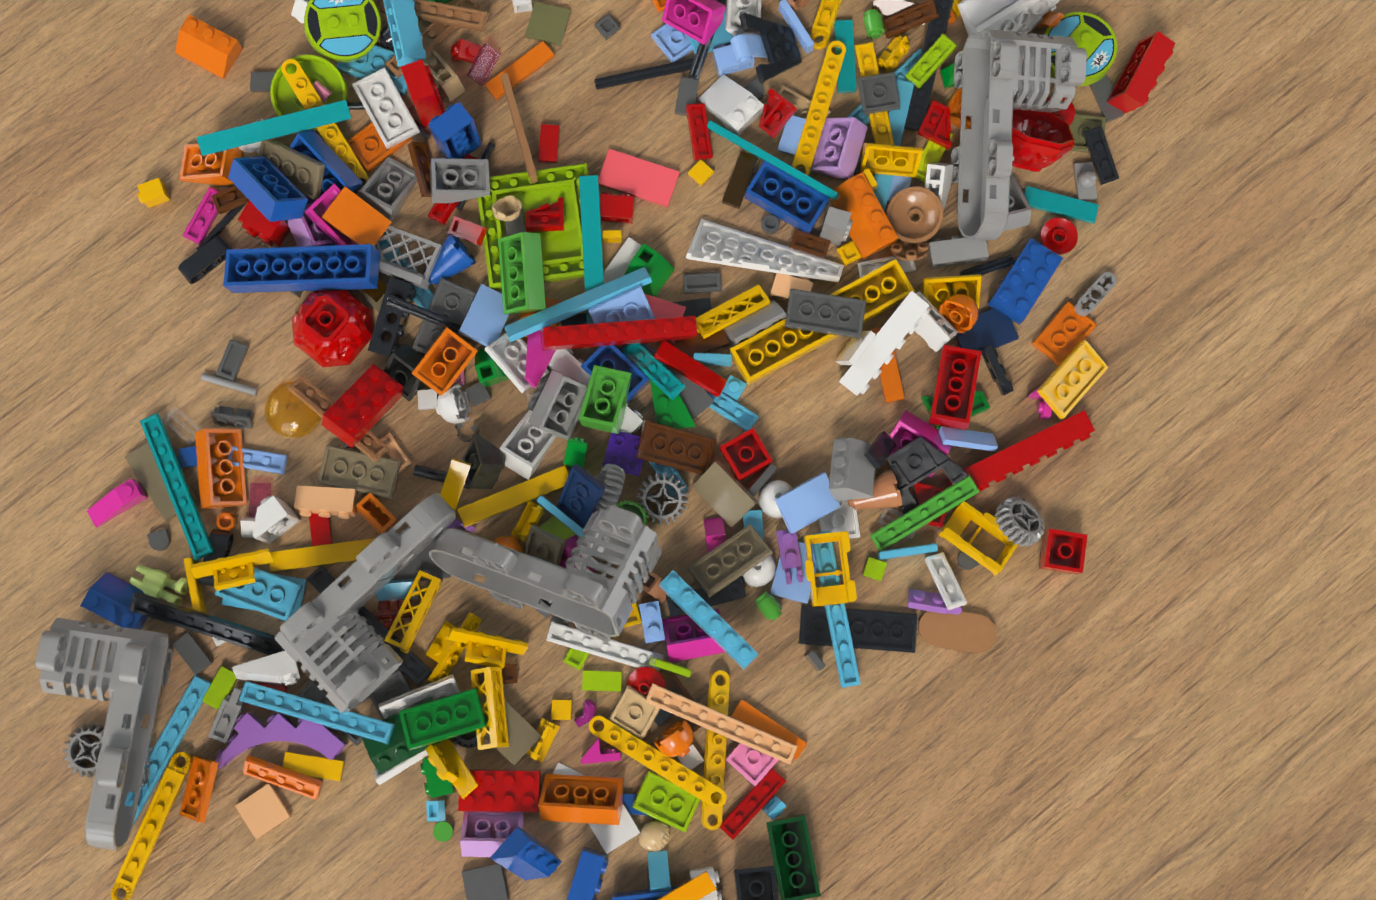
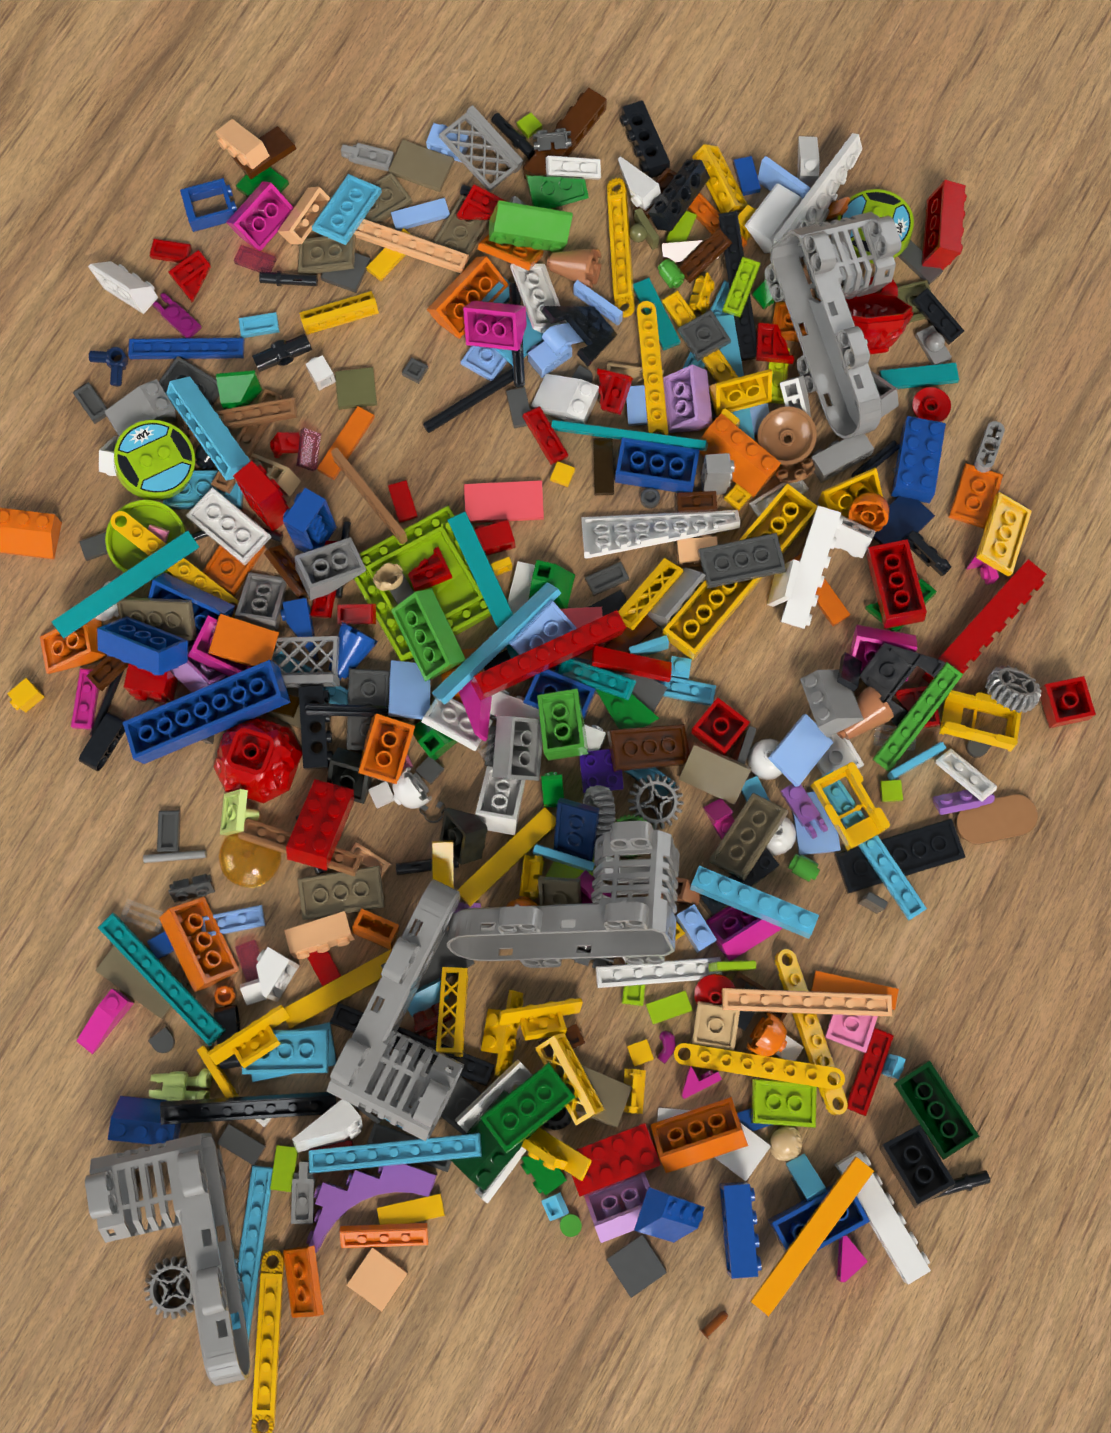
camera: 15 degrees left, 5 degrees down
(294, 367) = (235, 812): none -> yellowish green tile
(415, 217) = (299, 620): none -> blue slope
(968, 438) = (929, 629): light blue tile -> none

